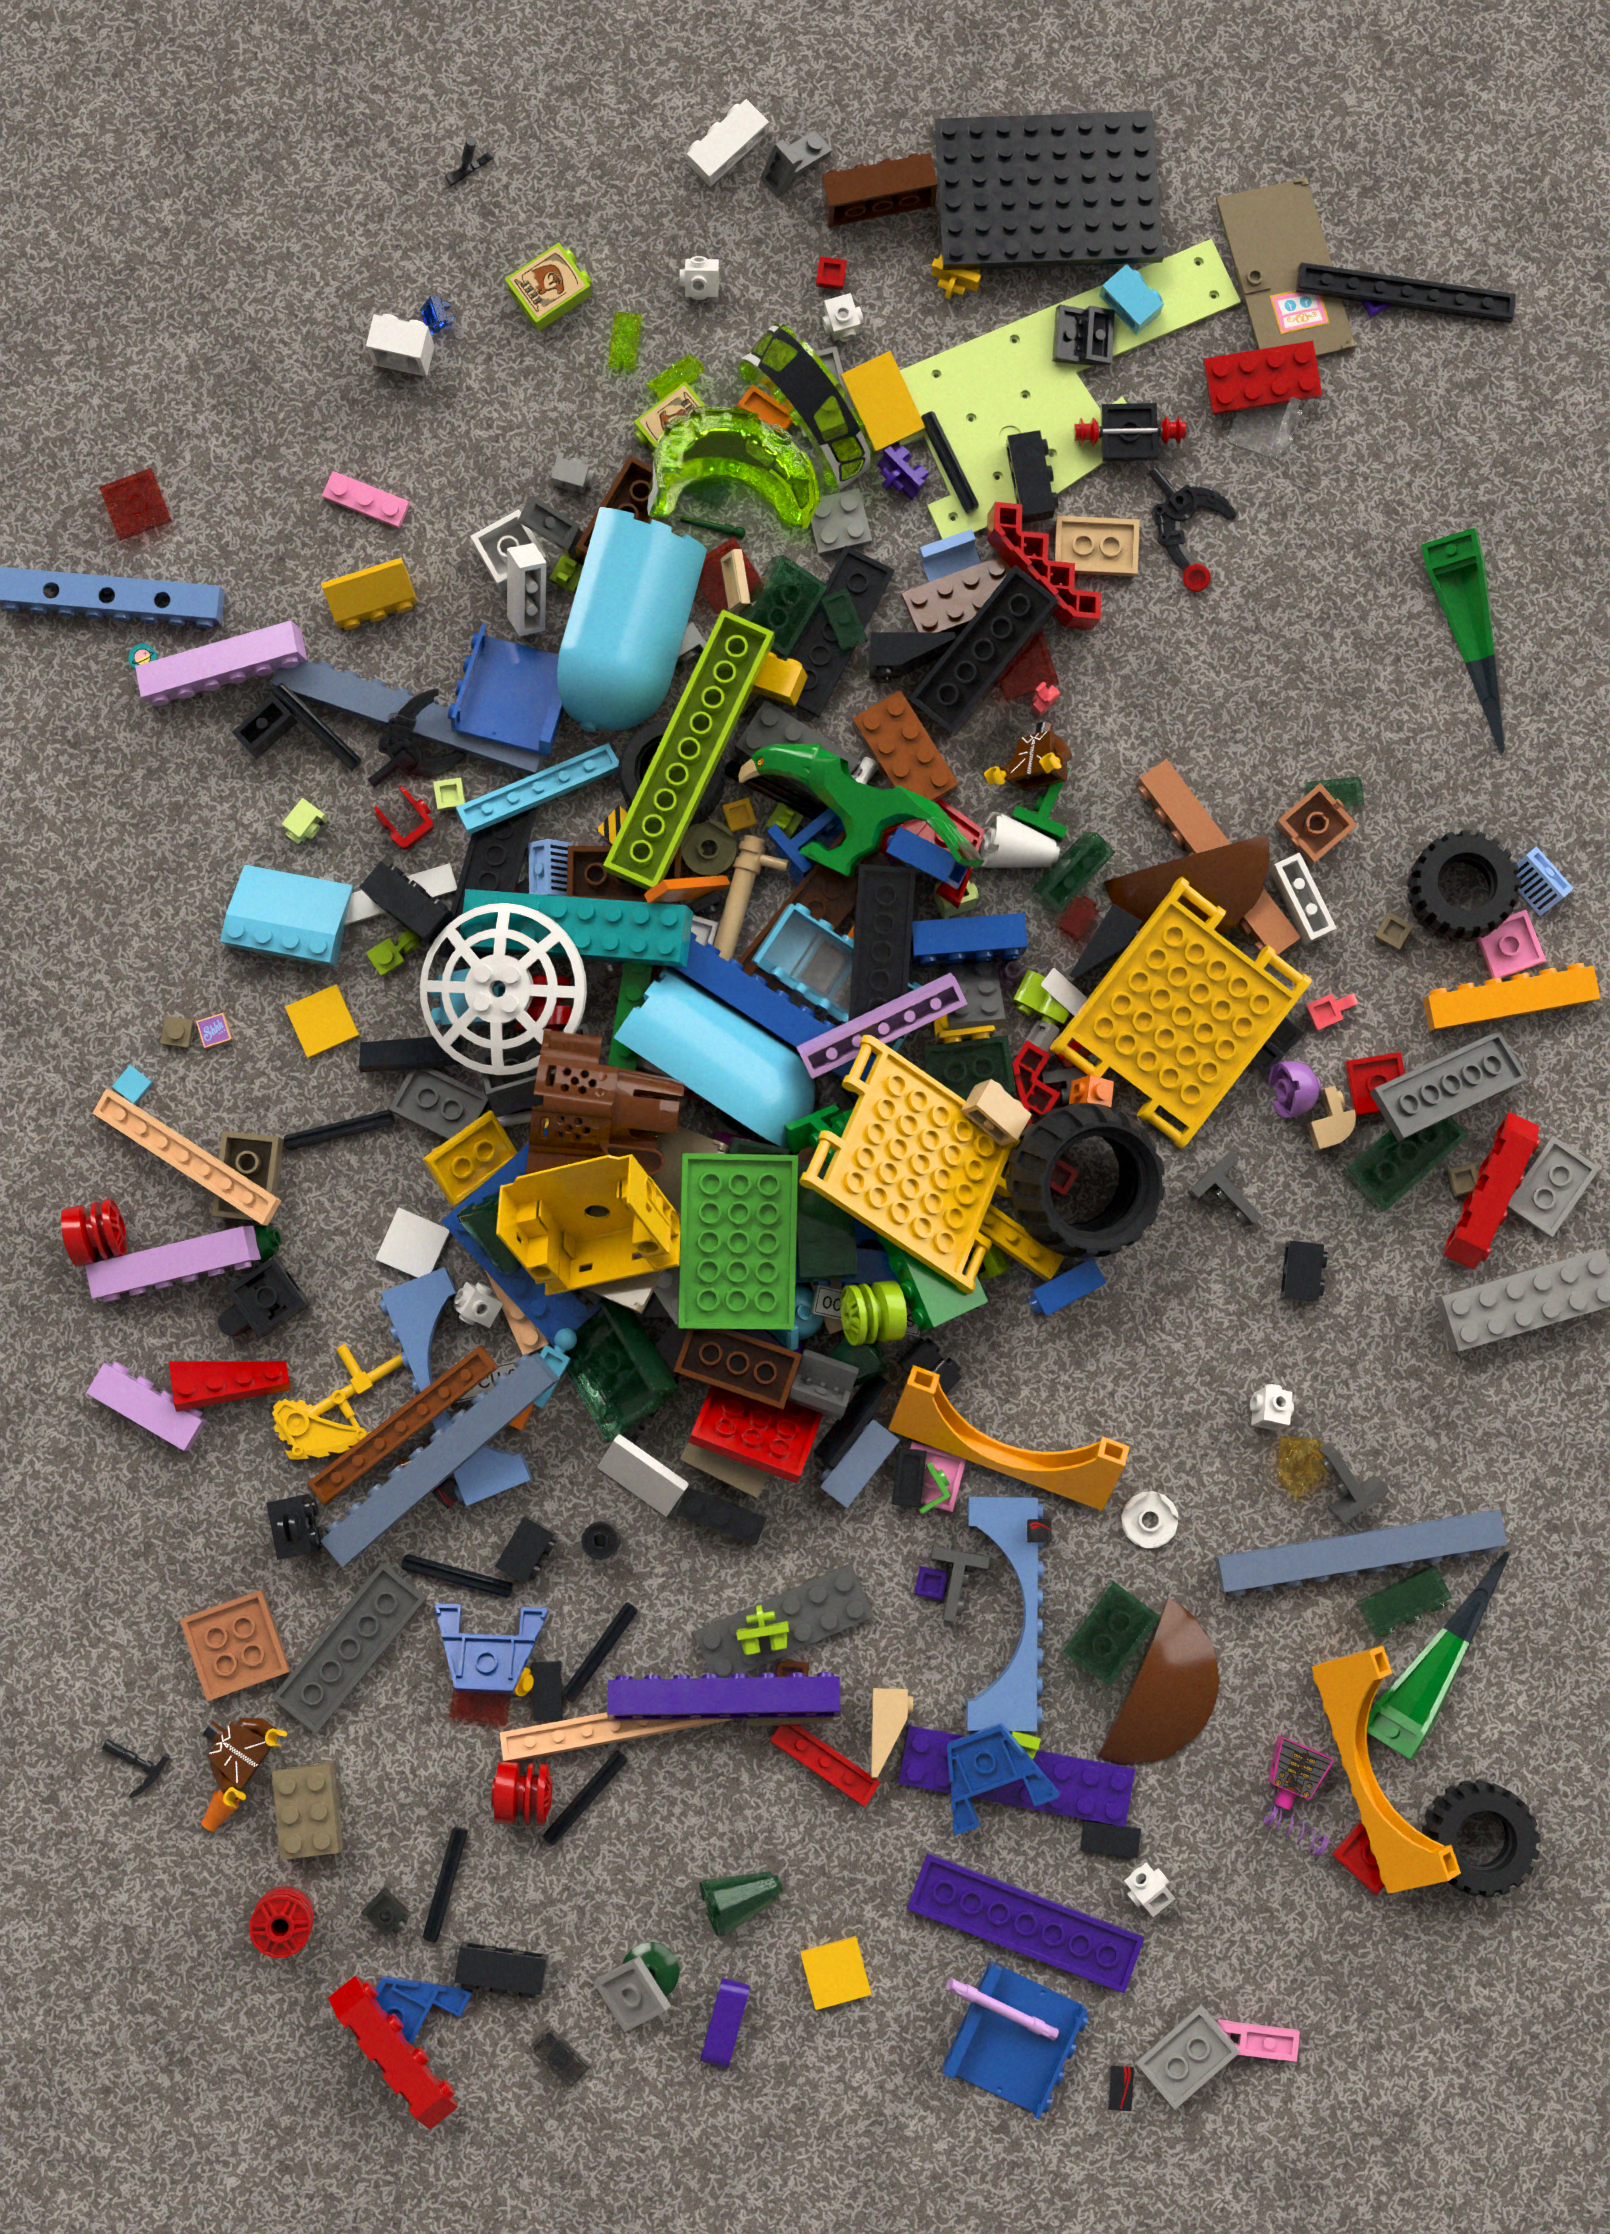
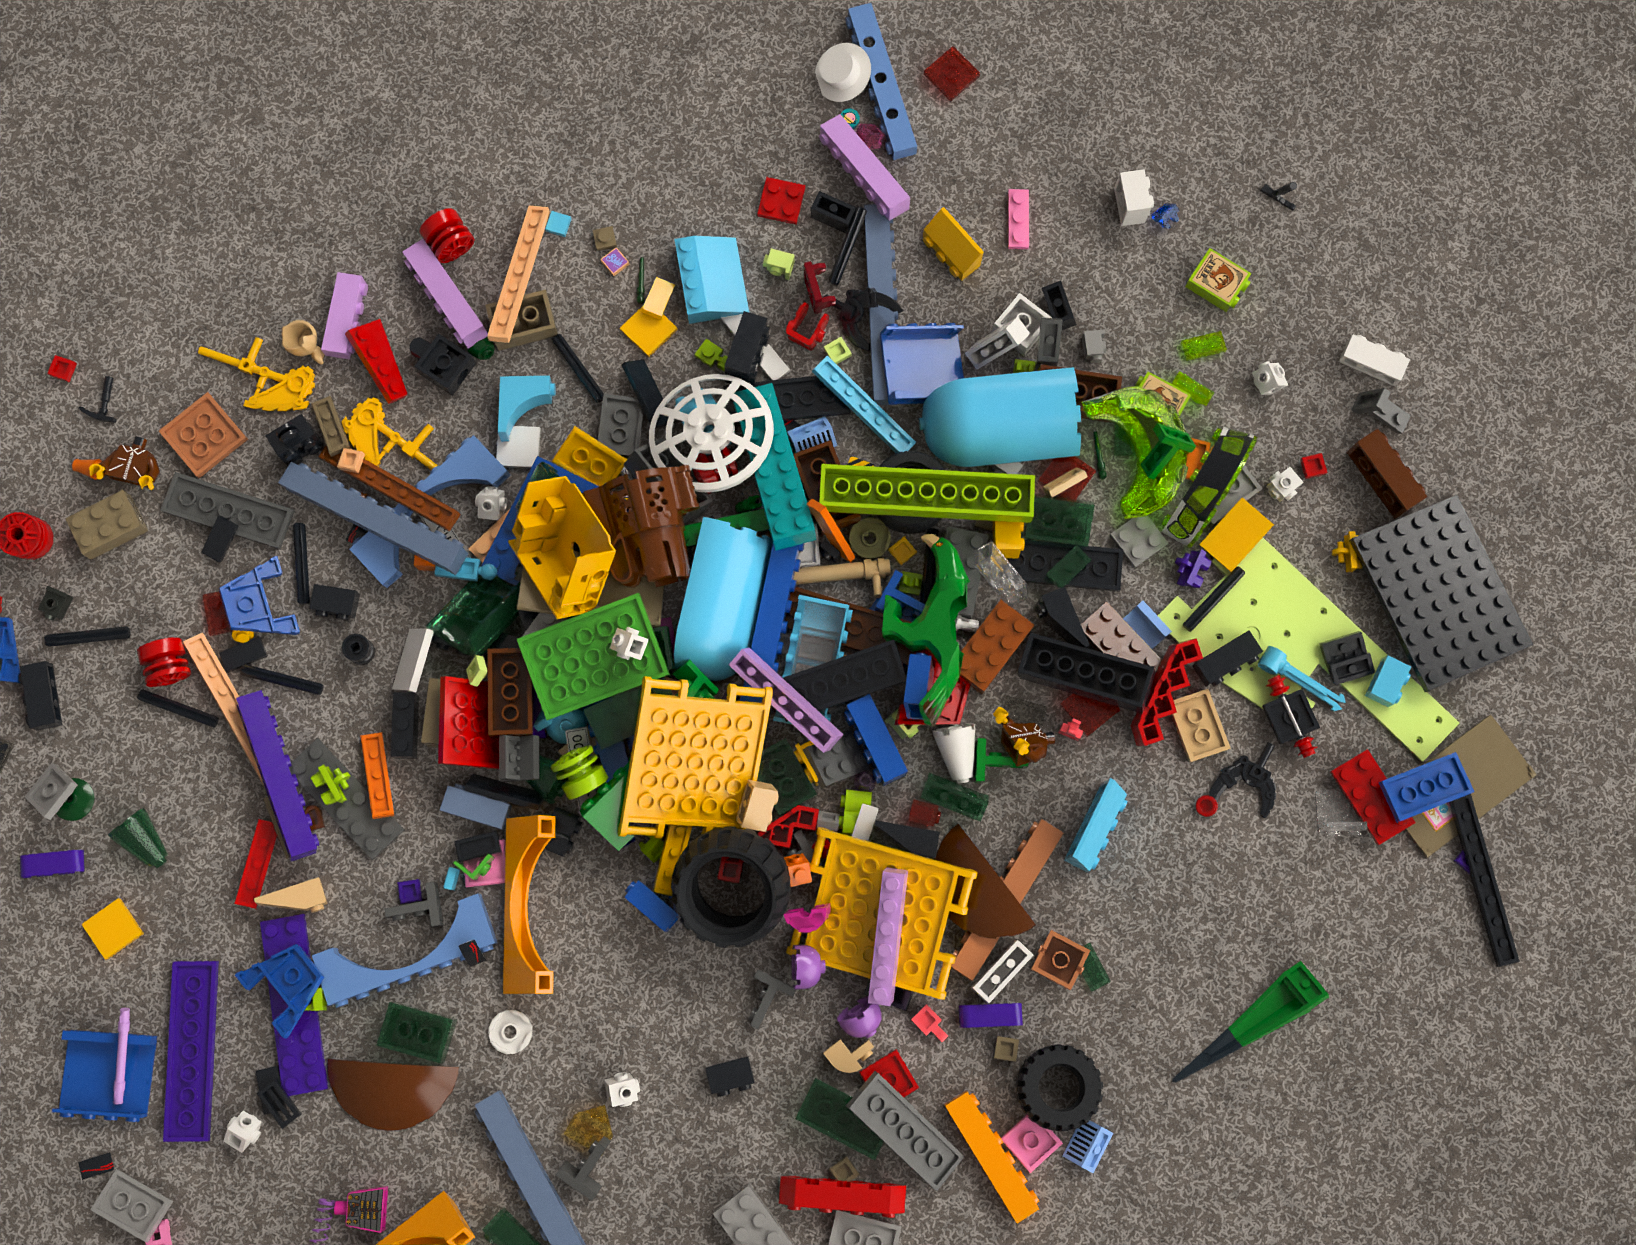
camera: 70 degrees right, 5 degrees down
(68, 1801) = (62, 368): none -> red plate
(76, 640) = (843, 72): none -> white hose
(159, 1483) = (301, 340): none -> tan hair
(179, 638) = (870, 135): none -> clear pink plate
(218, 787) = (781, 200): none -> red plate
(224, 1523) = (285, 395): none -> yellow bar
(265, 1012) = (640, 289): none -> dark green piece
(288, 993) = (658, 298): none -> yellow tile
(290, 1474) = (330, 425): none -> dark tan tile
(348, 1215) = (520, 395): none -> medium azure arch
(349, 1463) = (351, 460): none -> light nougat tile
(357, 790) = (809, 275): none -> dark red piece
(385, 1669) = (219, 539): none -> black tile
(502, 494) = (1059, 304): none -> black brick
(608, 982) = (747, 504): none -> green piece
(695, 1395) = (477, 670): none -> yellowish green plate
(742, 1193) = (628, 643): none -> white brick
(746, 440) = (1169, 443): none -> green bracket
(771, 1572) = (377, 775): none -> orange tile
(822, 705) = (1000, 574): none -> clear brick
(936, 1524) = (451, 878): none -> medium azure tile
(1058, 421) = (1275, 662): none -> medium azure piece
(1131, 1833) = (290, 1118): none -> black tile
(1160, 1104) = (805, 921): none -> dark pink cylinder
(1171, 717) = (1096, 826): none -> medium azure slope
(1211, 1129) = (806, 967): none -> medium lavender cylinder
(1215, 1014) = (888, 936): none -> lavender brick
(1277, 309) = (1426, 787): none -> blue plate
(1347, 938) = (990, 1015): none -> dark purple beam

